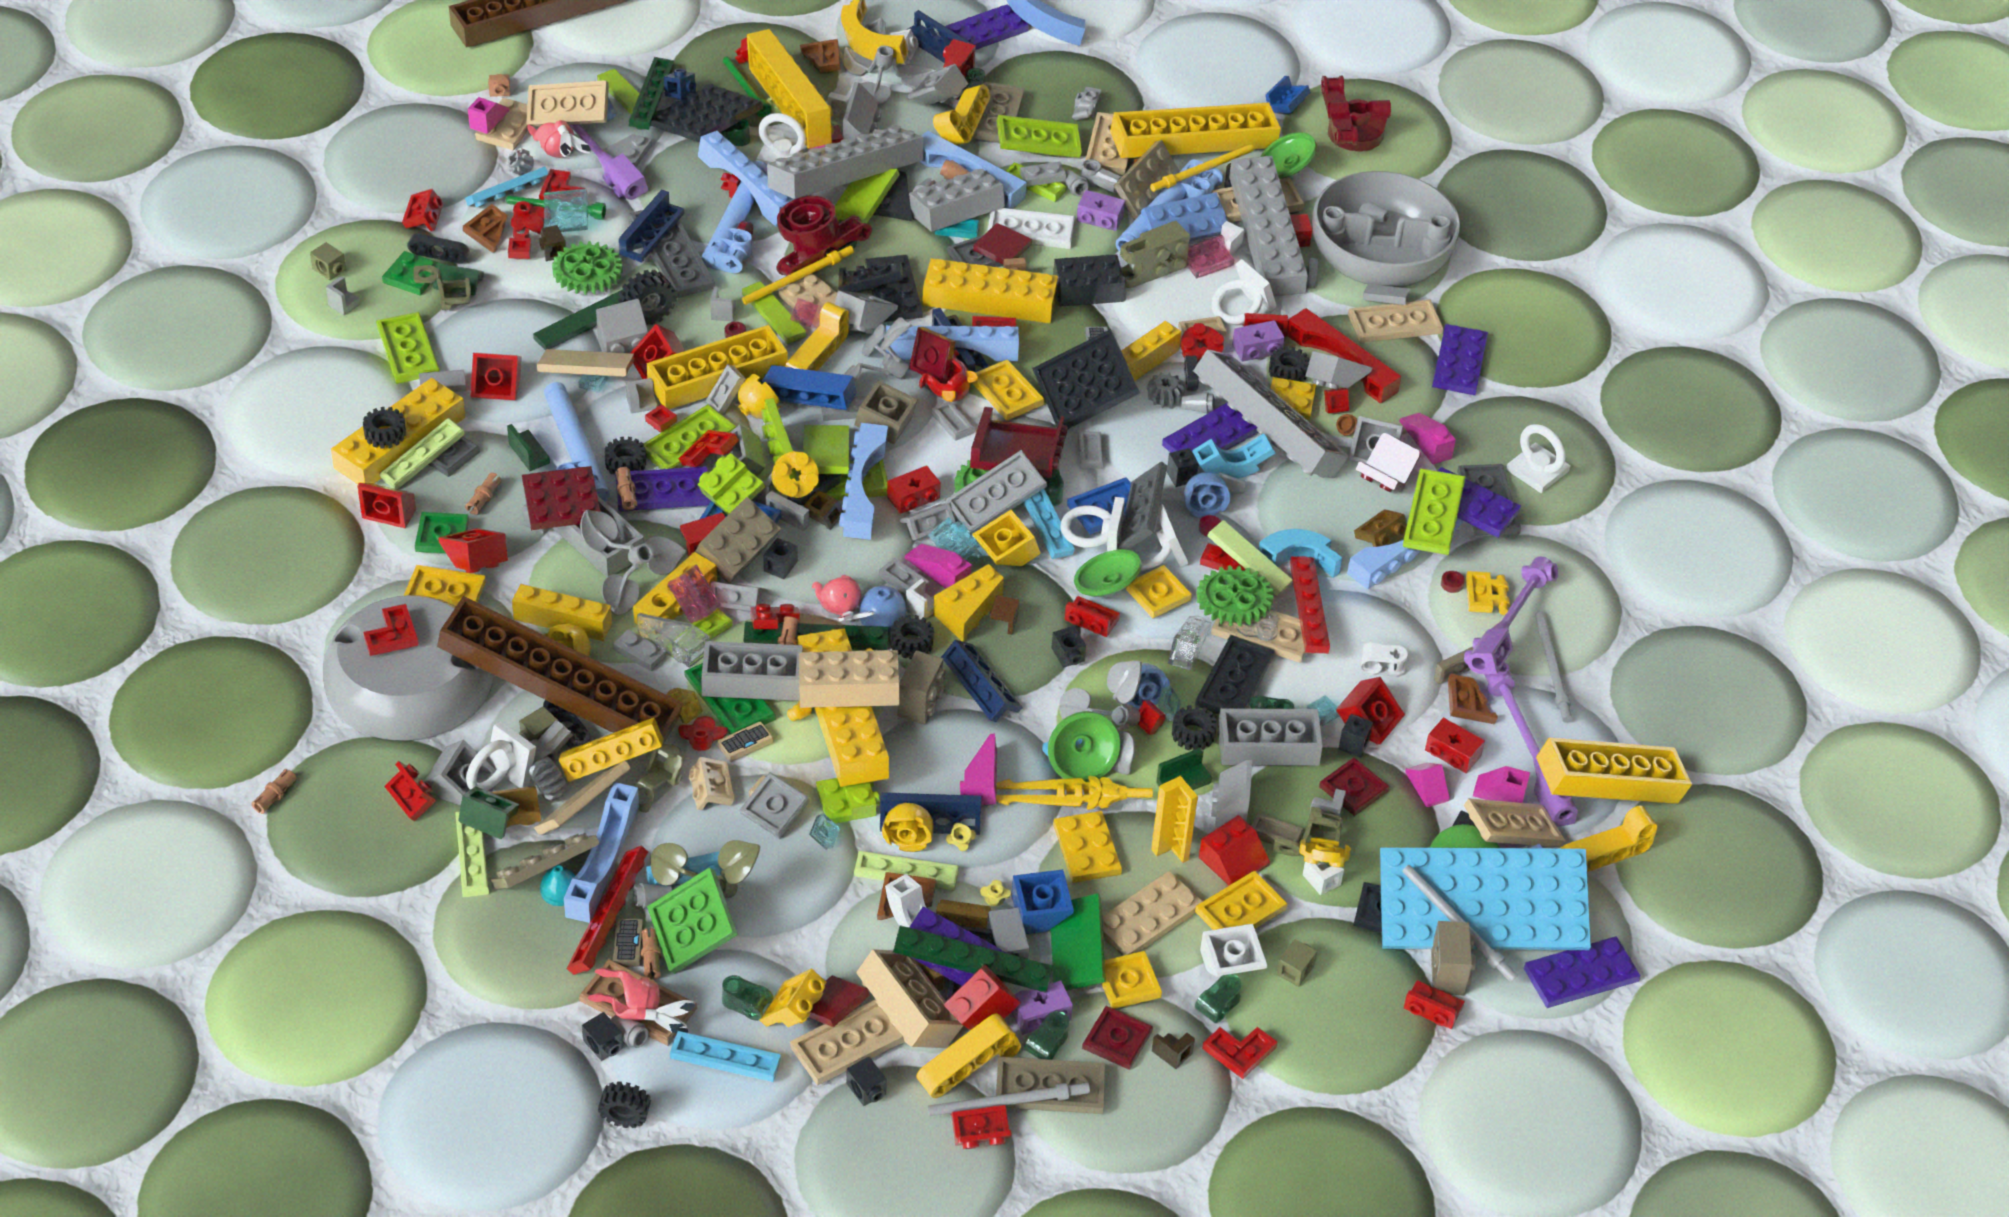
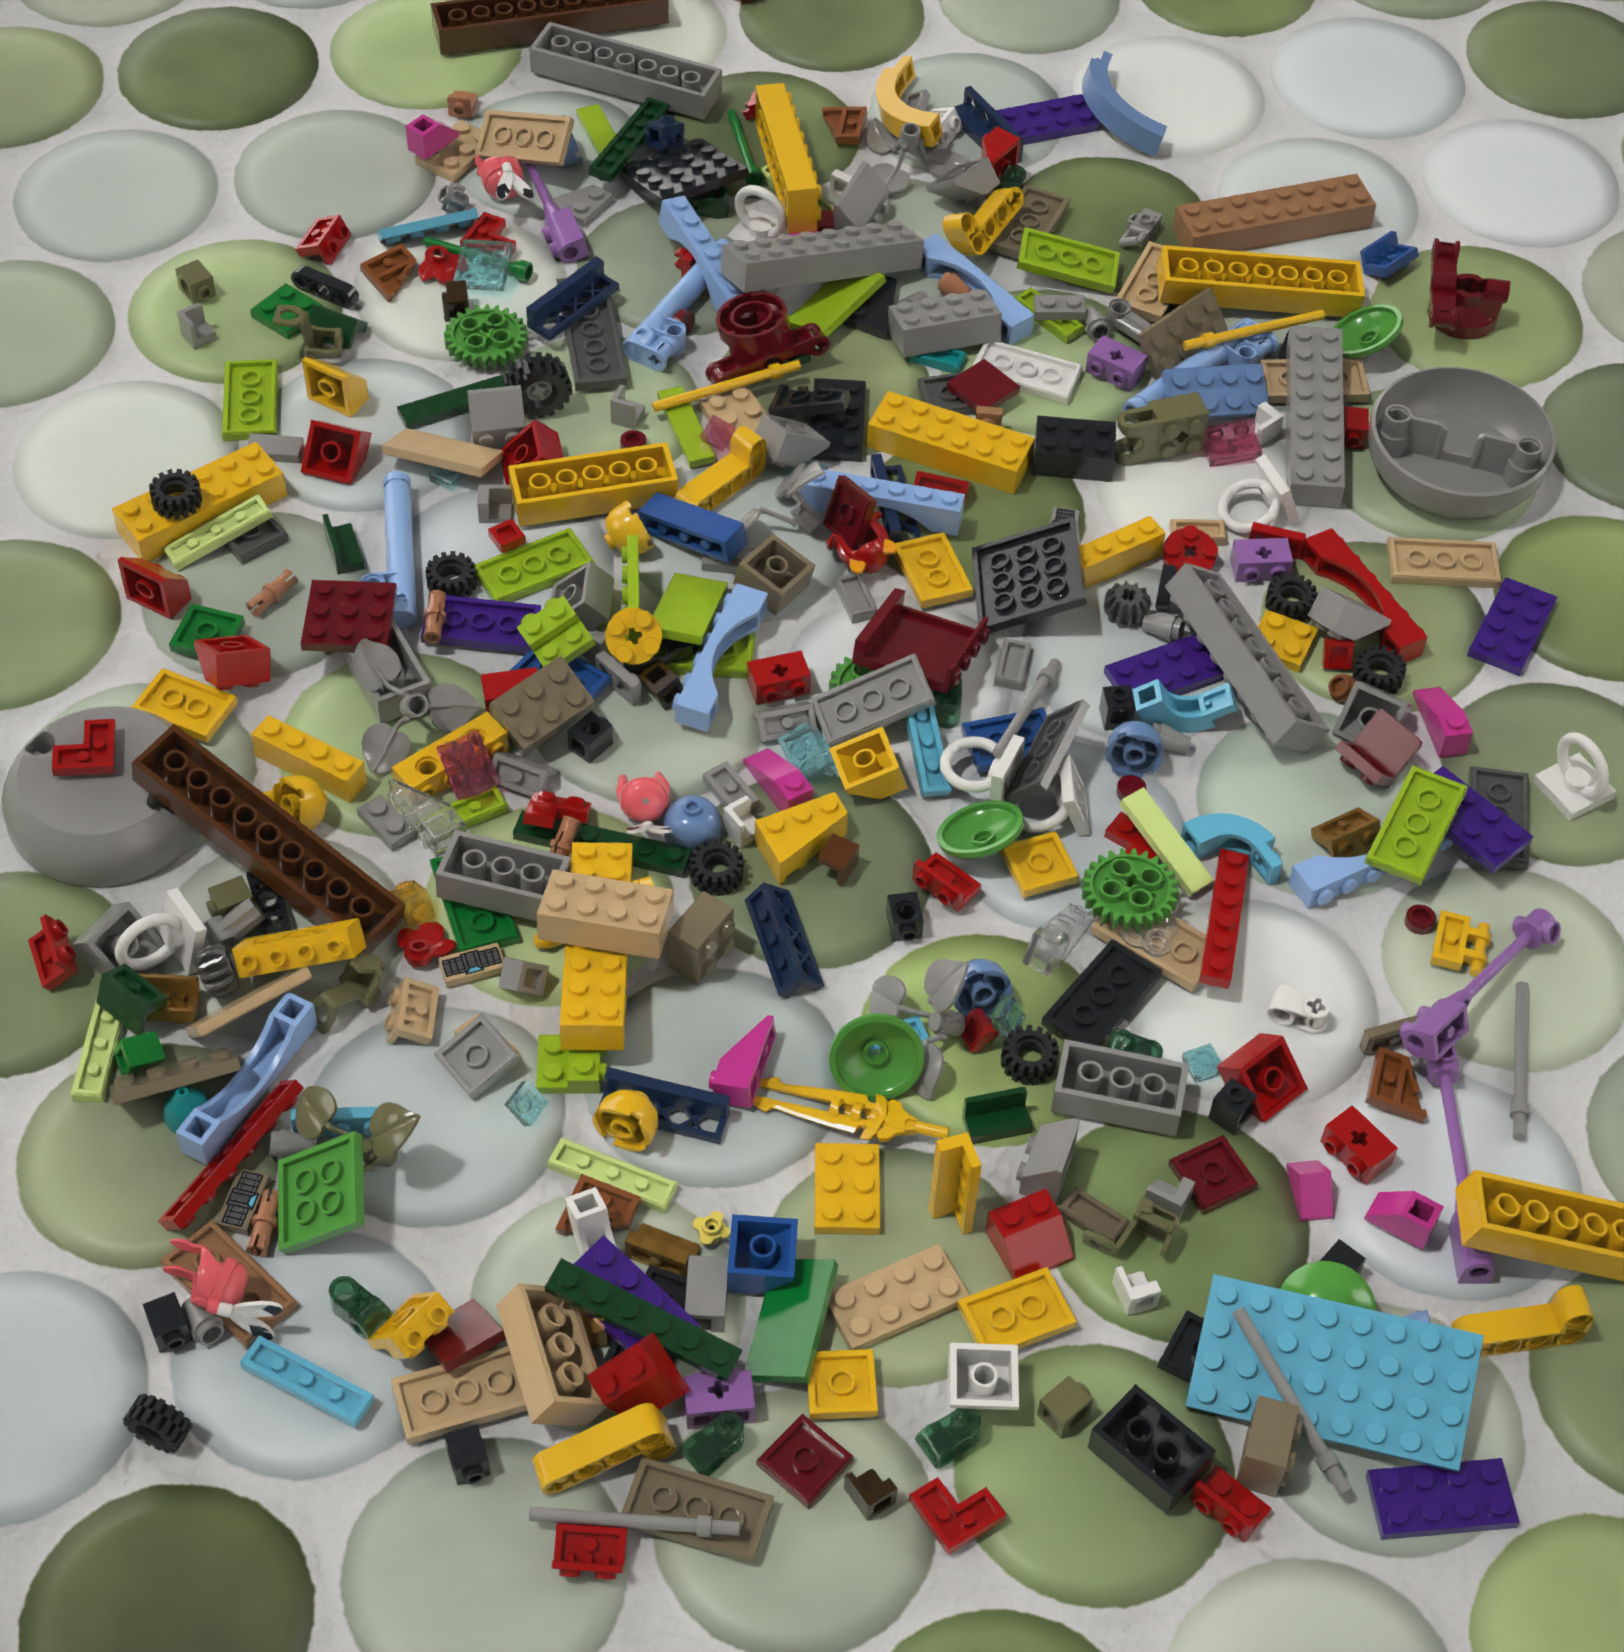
camera: 15 degrees right, 5 degrees up
(477, 326) = (334, 386): none -> yellow slope
(506, 850) = (137, 1052): none -> green panel
(519, 245) = (420, 298): red plate -> none
(628, 37) = (625, 70): none -> light grey brick
(710, 442) = (553, 577): red plate -> none
(725, 389) = (592, 513): light grey plate -> none
(790, 741) = (523, 976): none -> light grey panel
(960, 829) = (683, 1143): light yellow plate -> none
(1120, 457) = (1044, 680): none -> light grey bar
(1191, 77) = (1276, 215): none -> medium nougat brick
(1312, 270) = (1353, 483): dark grey plate -> none
(1324, 850) = (1142, 1261): yellow plate -> none
(1368, 977) = (1151, 1449): none -> black brick
(1373, 400) = (1381, 660): none -> black tyre
(1379, 214) = (1454, 420): light grey cone -> none
(1386, 294) = (1441, 526): light grey tile -> none
(1514, 823) = (1404, 1272): tan plate -> none

